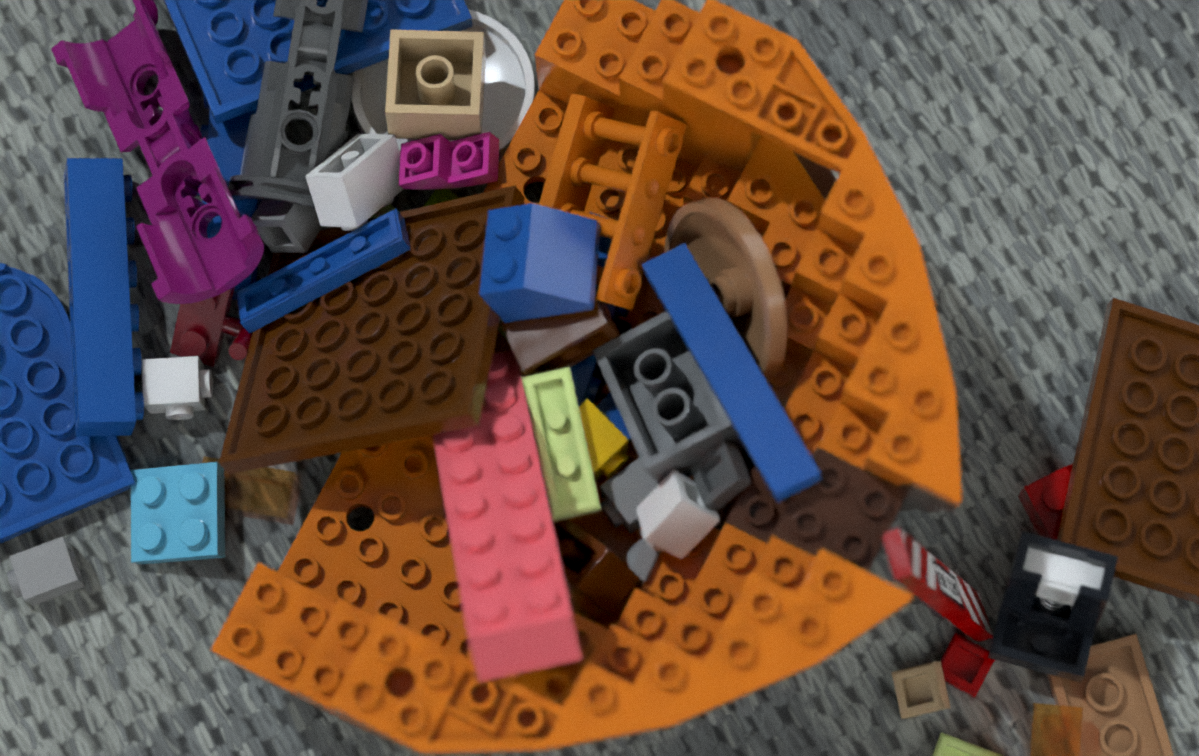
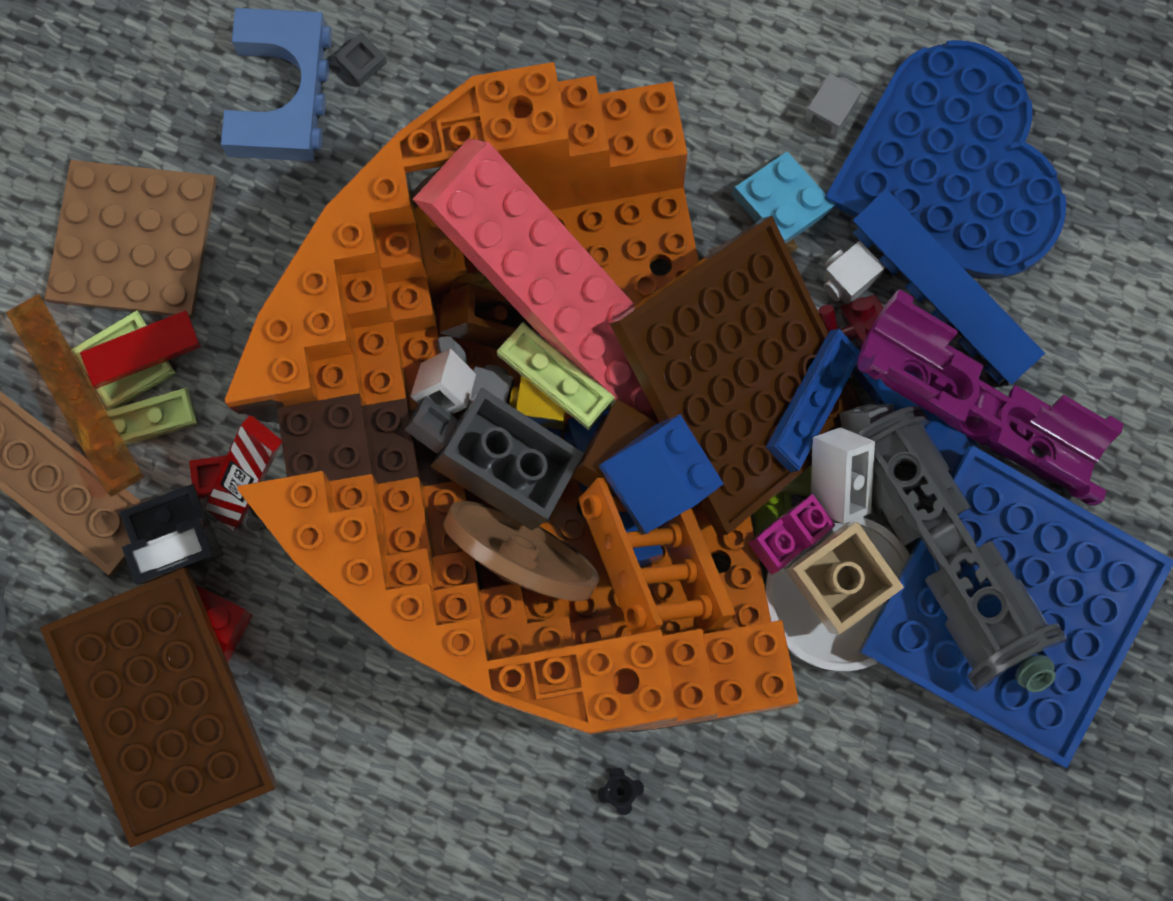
camera: 140 degrees right, 0 degrees up
(731, 373) = (471, 488): blue tile -> none
(921, 690) = (220, 436): tan tile -> none

